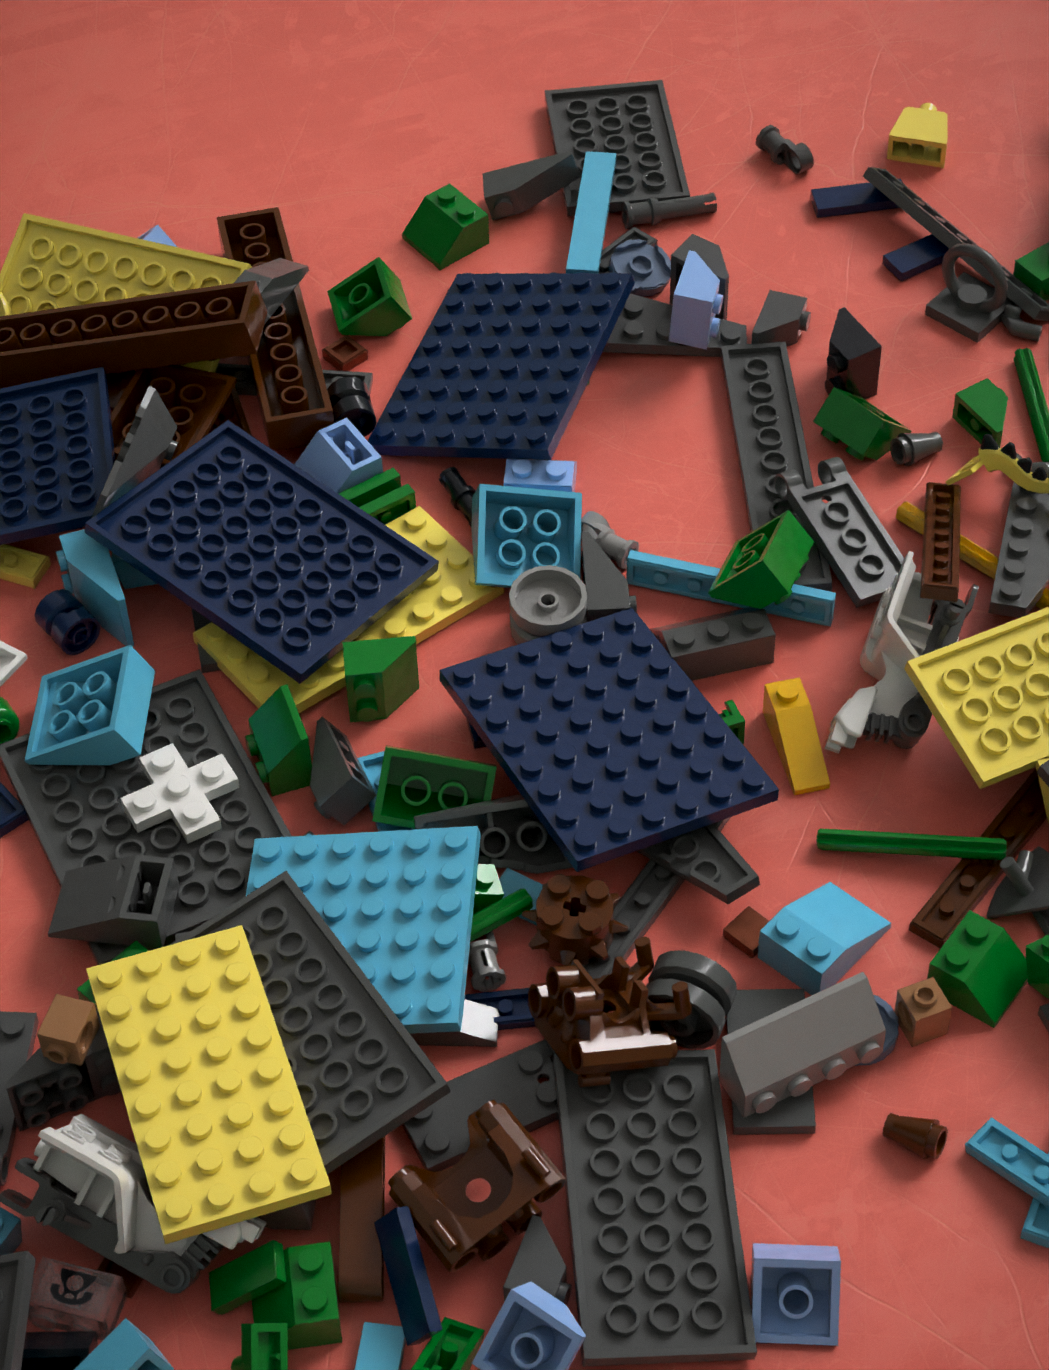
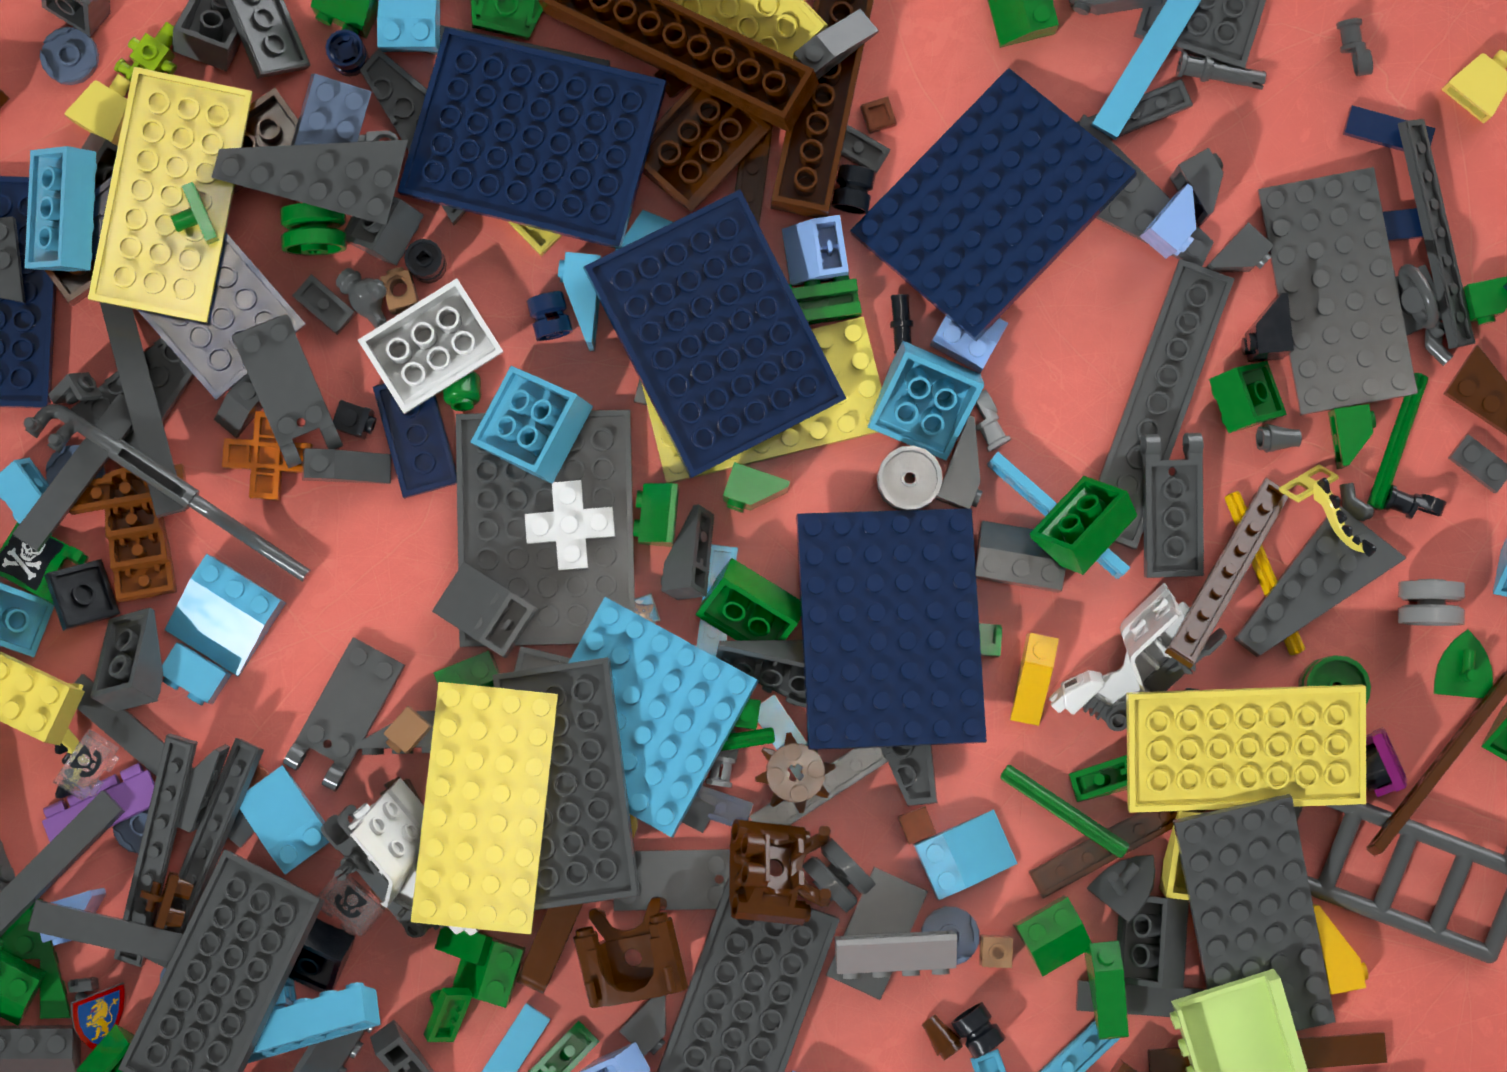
camera: 20 degrees right, 35 degrees up
(142, 451) = (661, 194): dark grey wedge -> none
(370, 302) = (920, 73): green slope -> none
(408, 1276) = (562, 995): dark blue tile -> none
(647, 264) = (1161, 133): sand blue tile -> none
(926, 330) = (1340, 291): none -> dark grey plate
(939, 794) = (1100, 779): none -> green slope
(954, 1102) = (978, 1030): none -> black wheel

